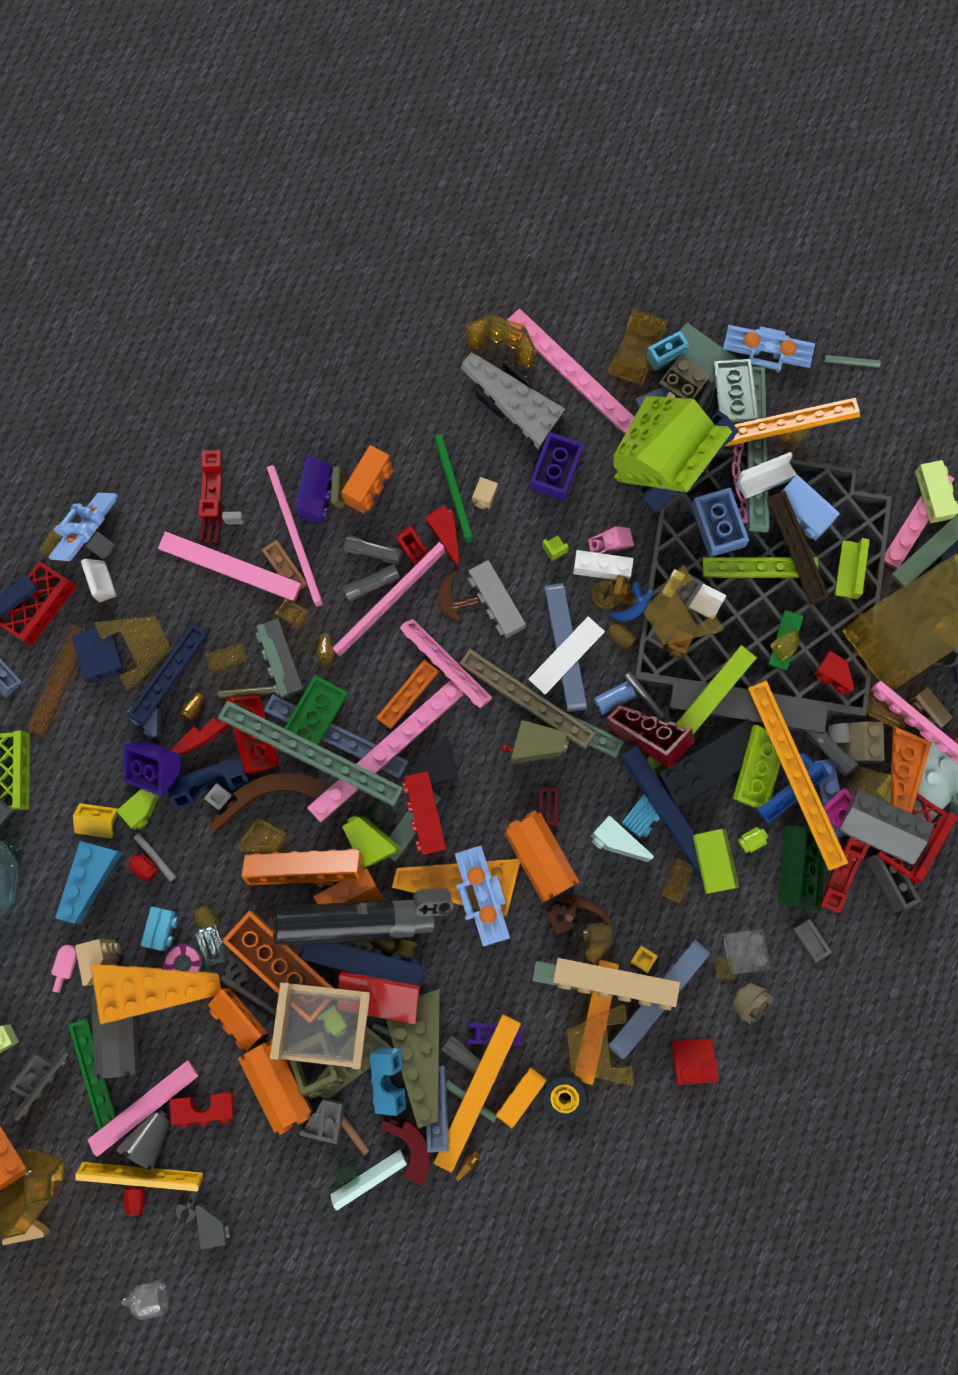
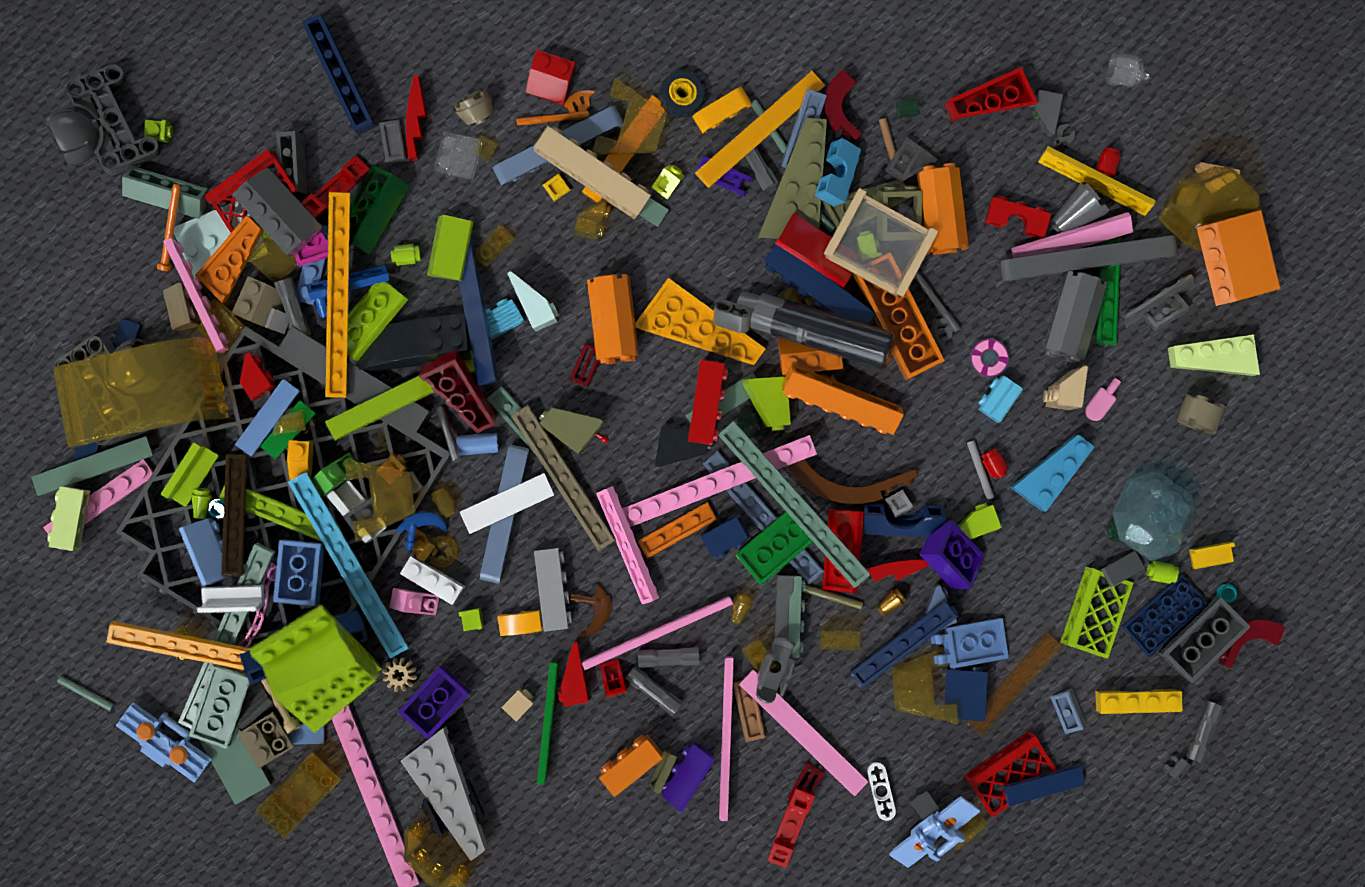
camera: 165 degrees left, 10 degrees up
(94, 820) = (1025, 528): yellow panel -> none
(98, 579) = (938, 771): white tile -> none
(107, 699) = (972, 643): none -> medium blue tile
(119, 1096) = (1089, 258): none -> dark grey beam
(140, 990) = (1034, 343): light orange wing -> none
(146, 558) = (890, 804): none -> white beam
(205, 918) = (952, 388): clear yellow brick -> none
(206, 931) = (956, 376): clear light blue tile -> none
(233, 517) = (781, 782): light grey tile -> none
(236, 1019) = (956, 284): orange slope -> none
(259, 1224) = (997, 95): none -> red wedge
(262, 838) = (871, 444): clear yellow wing -> none
(274, 595) = (769, 681): none -> dark grey piece
(362, 701) = (724, 537): none -> dark blue brick
(368, 1179) = (889, 94): light aqua tile -> none
(406, 948) = (774, 285): clear yellow wheel -> none
(467, 1165) = (793, 72): pearl gold bar -> none
(488, 894) = (676, 304): light blue piece -> none
(511, 560) = (520, 623): none -> light orange slope
(543, 1008) = (668, 180): none -> neon yellow bracket
(557, 919) = (619, 255): reddish brown brick -> none
(577, 902) = (597, 264): reddish brown piece -> none
(596, 484) = (397, 681): none -> tan gear
(658, 1034) = (572, 115): none -> orange piece
(667, 350) = (270, 778): medium azure brick -> none
(682, 547) = (348, 564): none -> medium azure plate
(728, 616) = (332, 475): none -> bright green slope
(763, 618) = (300, 458): none -> light orange slope
(803, 977) = (415, 112): none -> red slope
(808, 644) = (267, 417): none -> medium blue tile
(816, 548) = (216, 508): none -> plate
(831, 548) = (201, 499): none -> lime cone
(890, 982) = (339, 74): none -> dark blue brick

